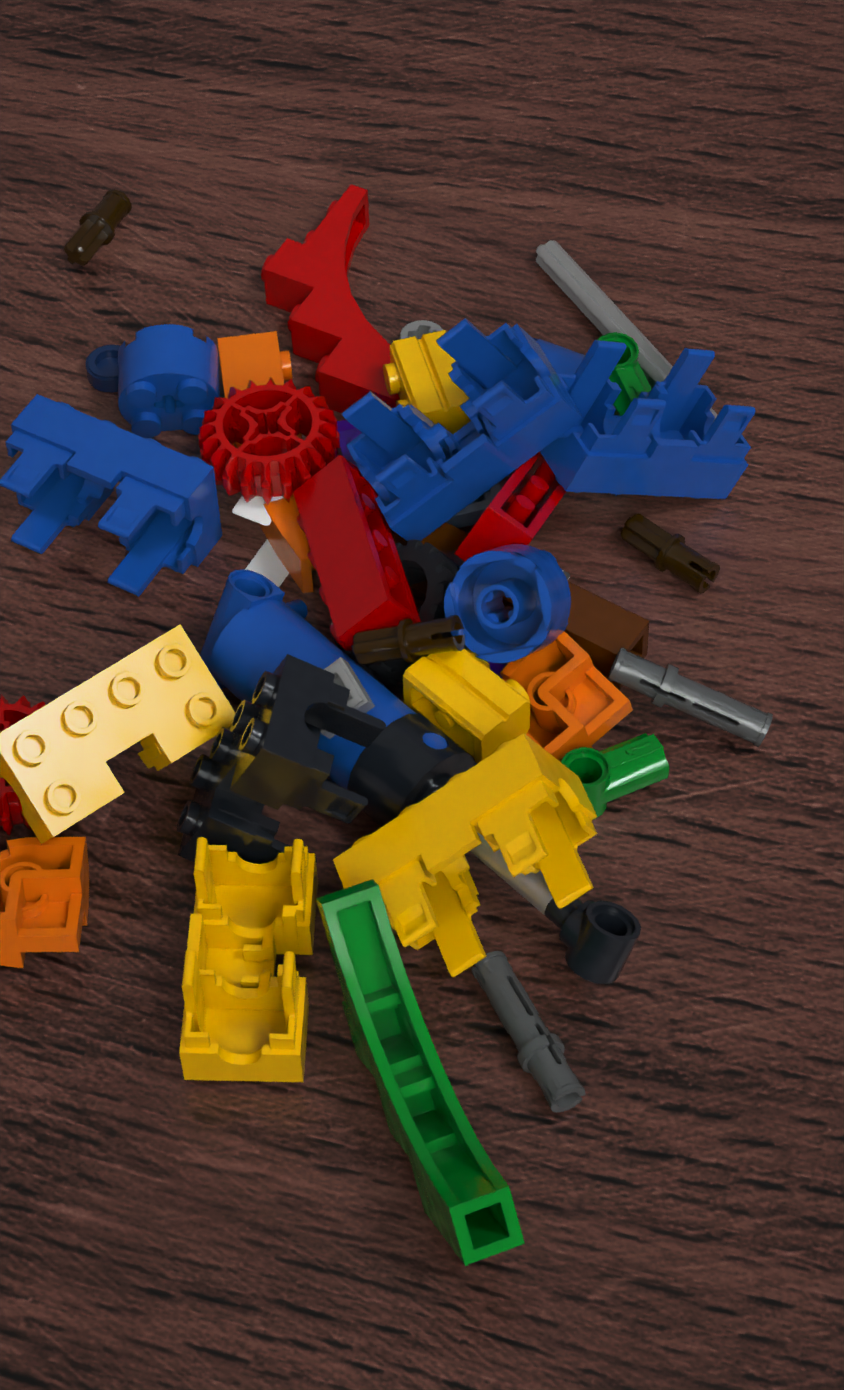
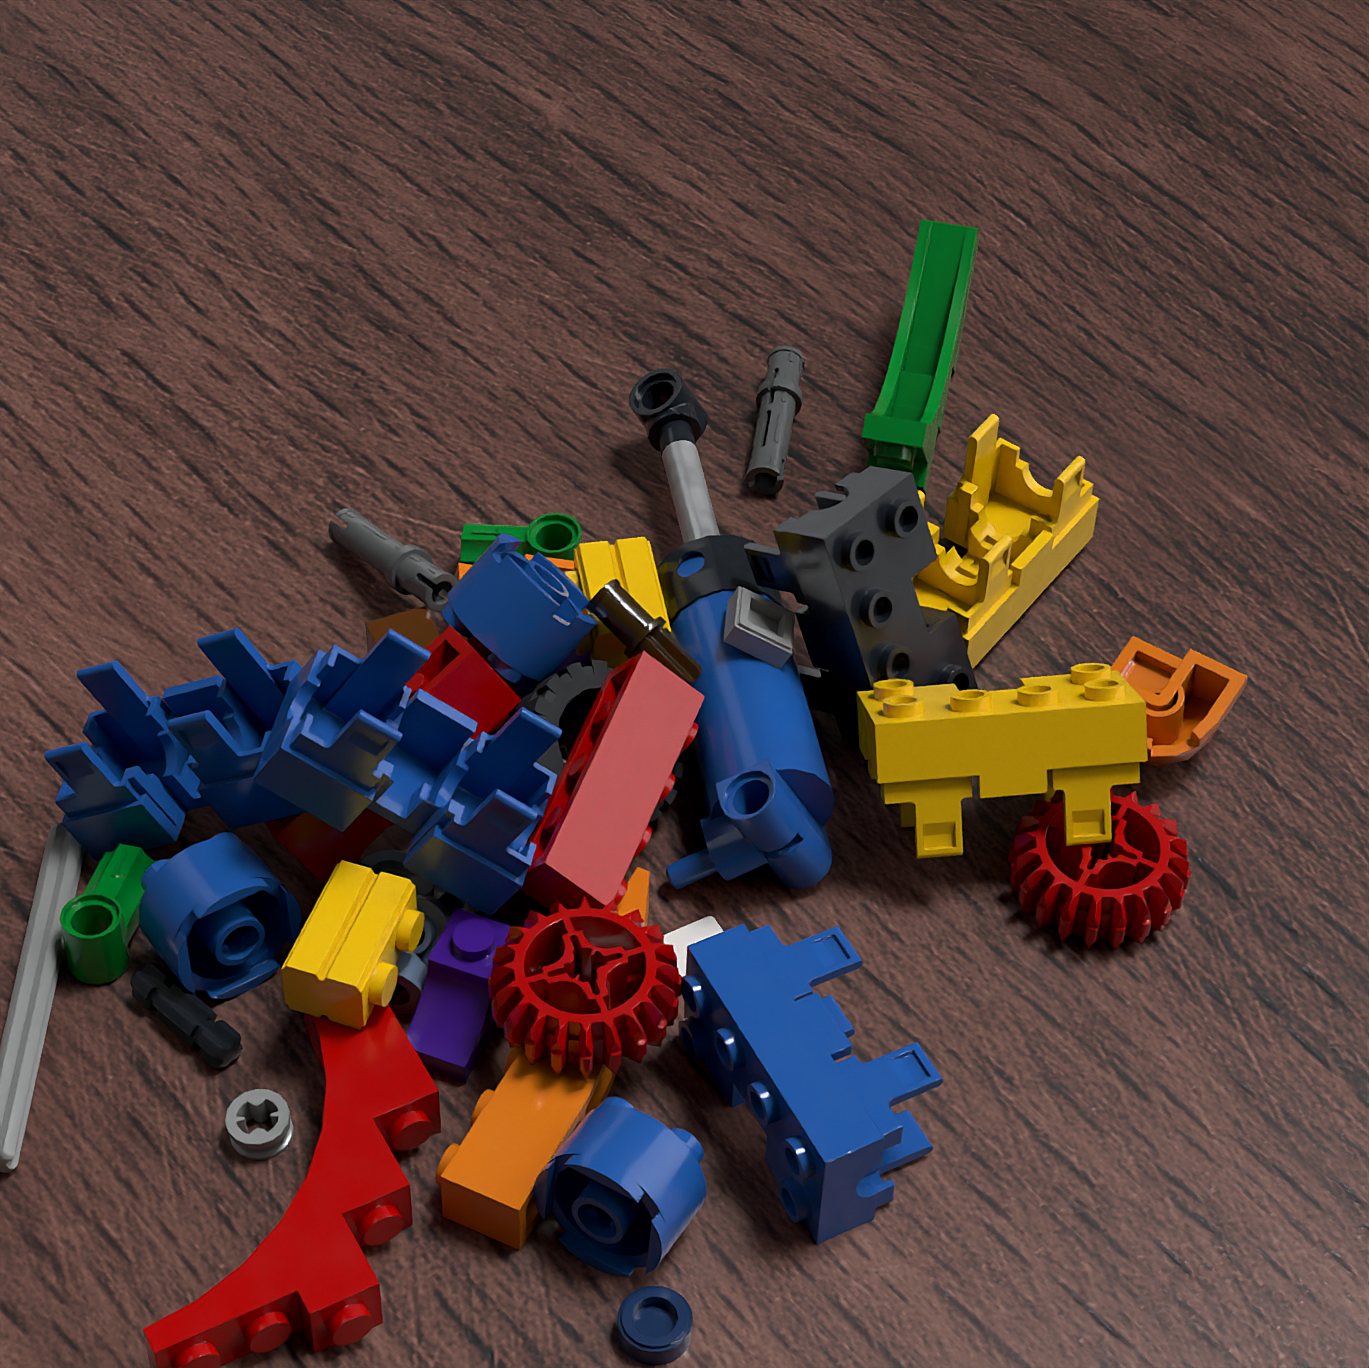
camera: 150 degrees left, 5 degrees down
(518, 803) = (740, 456): yellow piece -> none

